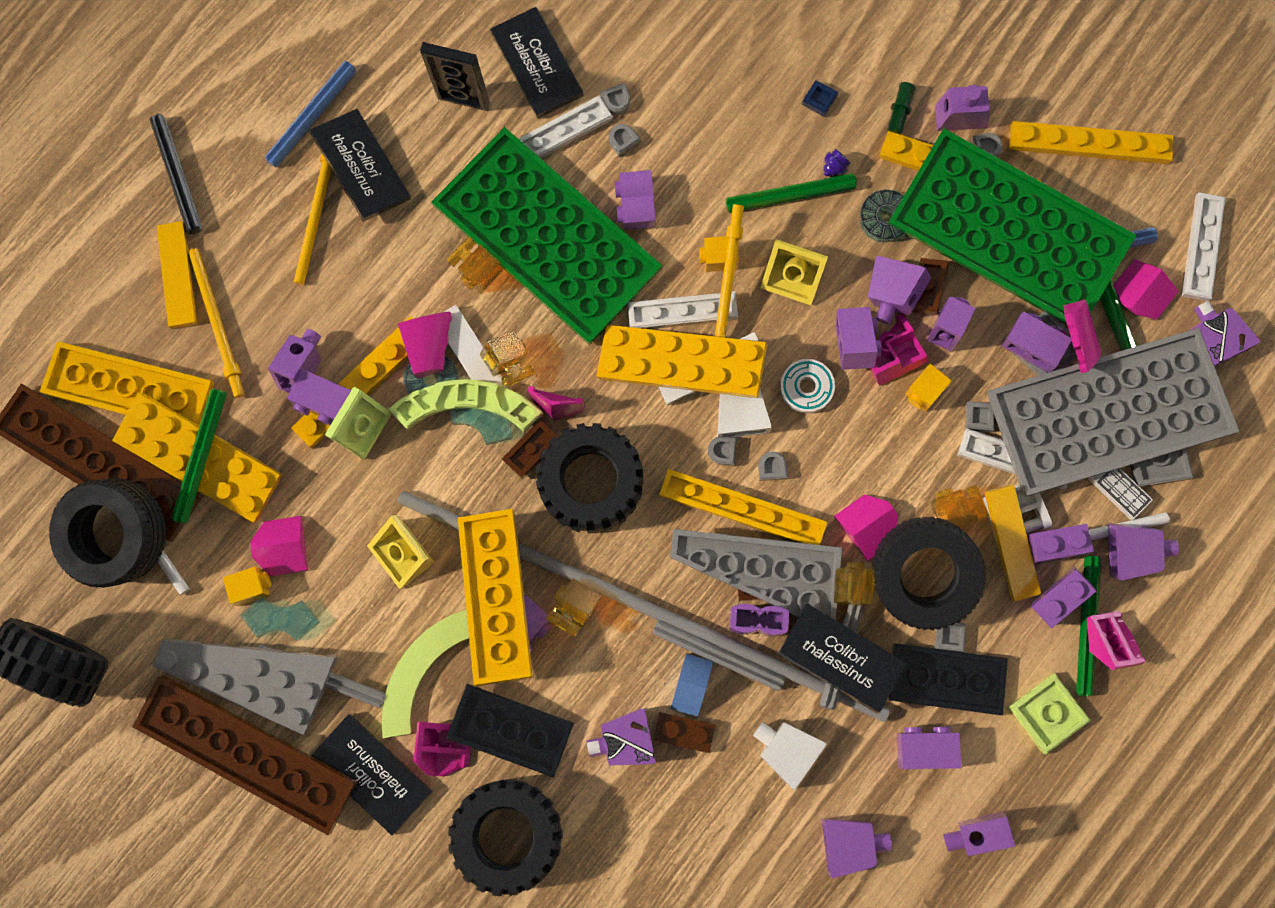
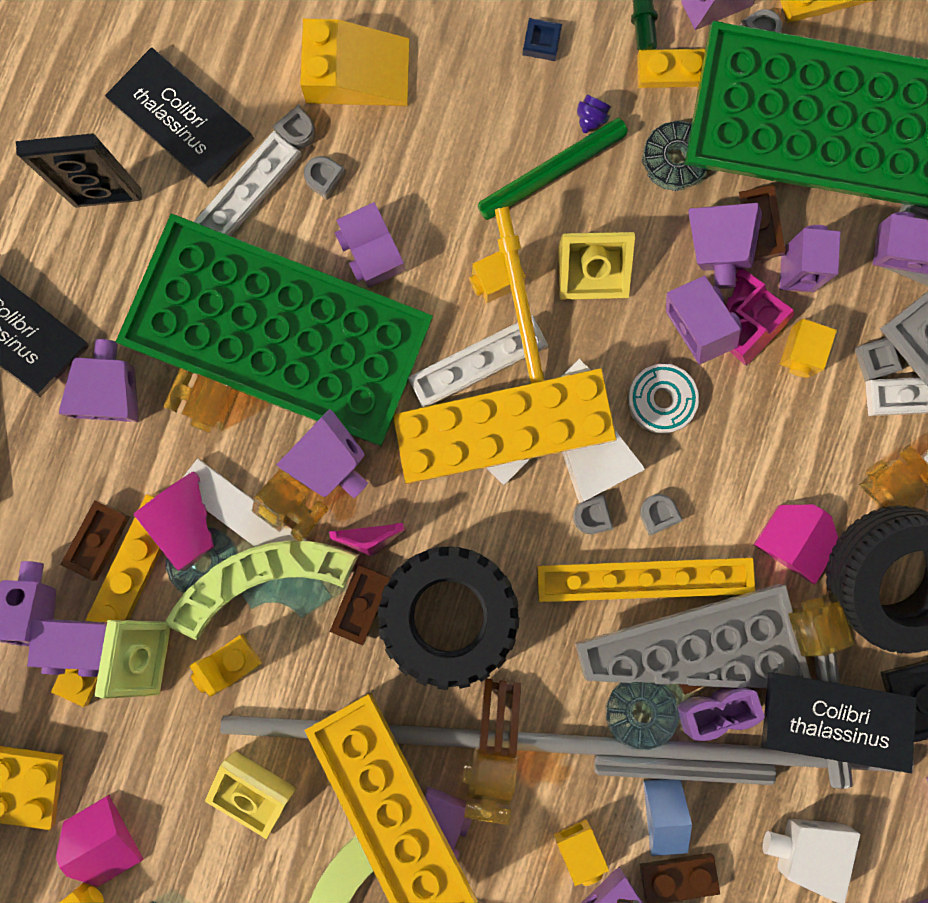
camera: 30 degrees left, 5 degrees up
(362, 335) = (95, 540): none -> reddish brown plate
(408, 230) = (101, 387): none -> medium lavender torso
(420, 456) = (224, 666): none -> yellow bracket
(546, 336) = (326, 458): none -> medium lavender torso
(608, 548) = (502, 688): none -> reddish brown tile
(619, 684) = (581, 854): none -> yellow brick
(675, 68) = (353, 64): none -> yellow slope
(699, 617) = (634, 733): none -> clear light blue tile

